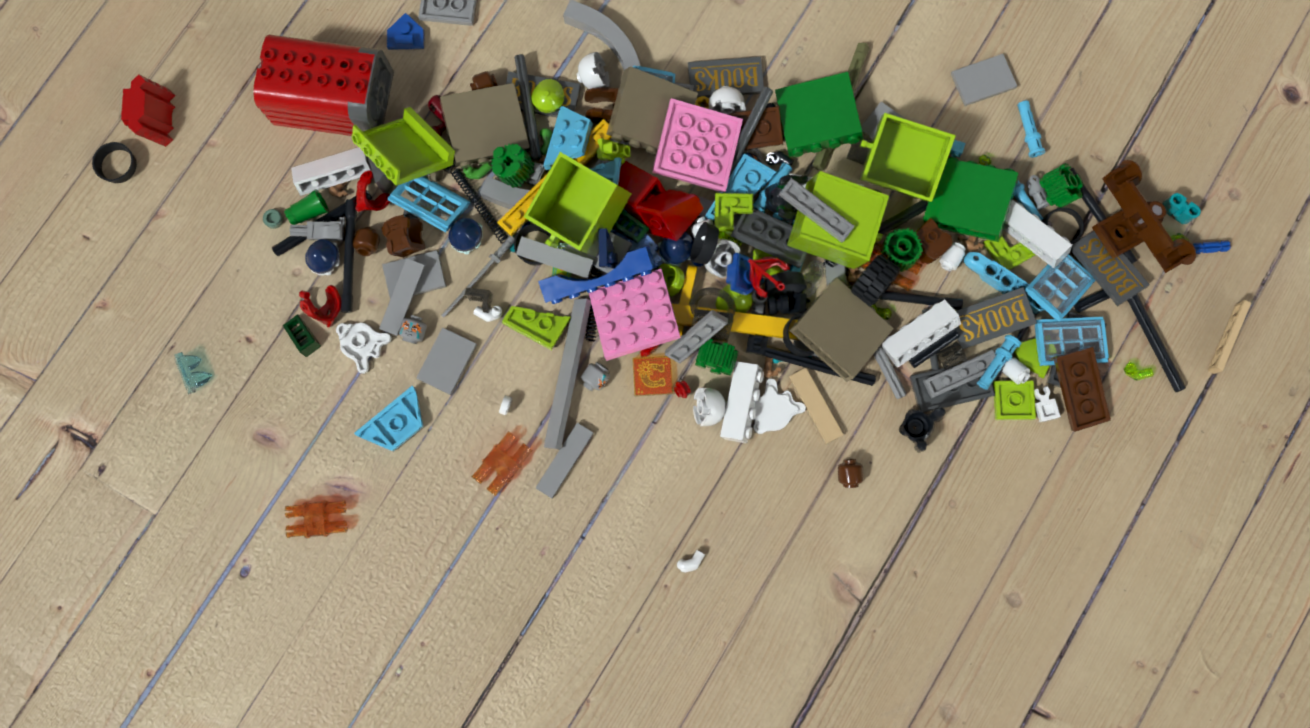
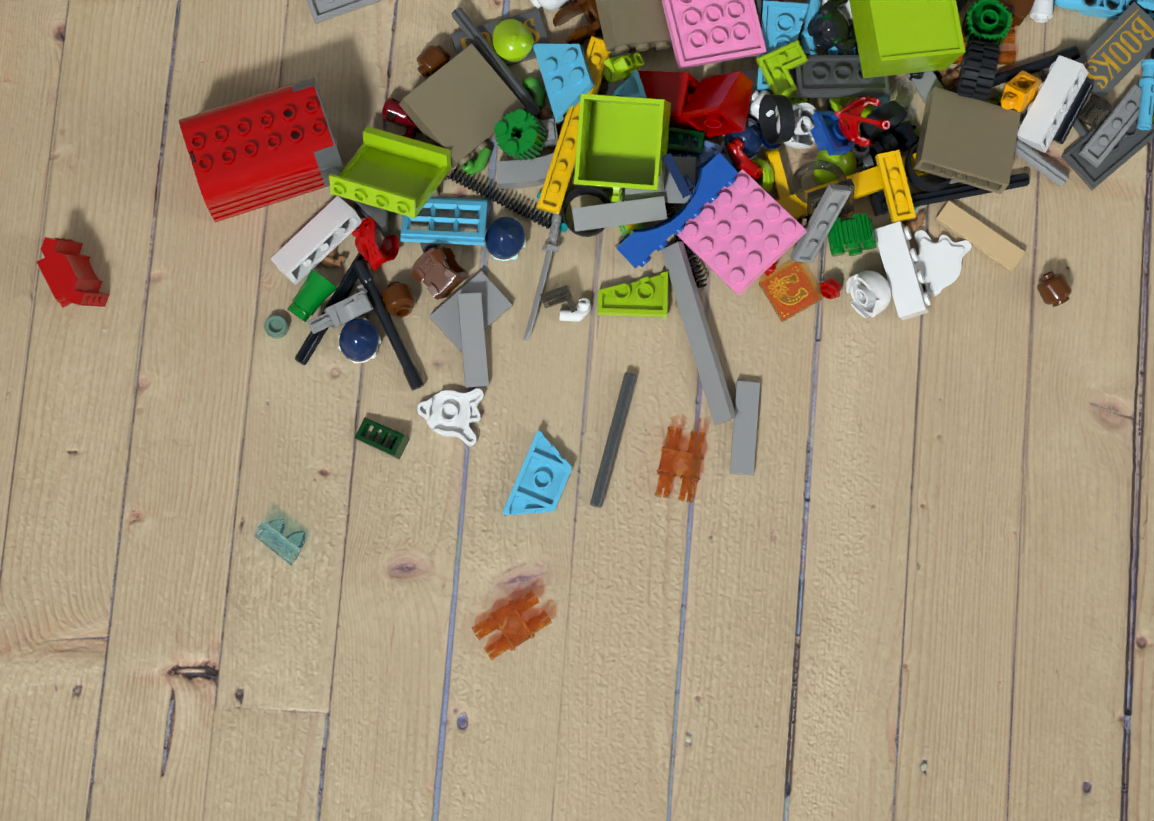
camera: 35 degrees left, 0 degrees up
(103, 151) = (45, 336): black tyre -> none
(333, 303) = (396, 385): red helmet -> none
(405, 34) = (310, 48): blue plate -> none
(413, 329) = (503, 370): light grey head -> none
(446, 361) = (558, 386): light grey tile -> none
(464, 420) = (613, 440): none -> dark grey axle
(506, 403) = (650, 400): white tile -> none
(595, 376) = (730, 321): light grey head -> none
(663, 261) = (741, 160): none -> red arm
(691, 564) = (937, 469): white arm -> none
(768, 337) = (895, 186): none -> yellow plate
(816, 210) = (885, 24): light grey tile -> none
(901, 312) = (1020, 91): none -> light orange piece
(924, 426) = (1104, 200): black hair -> none

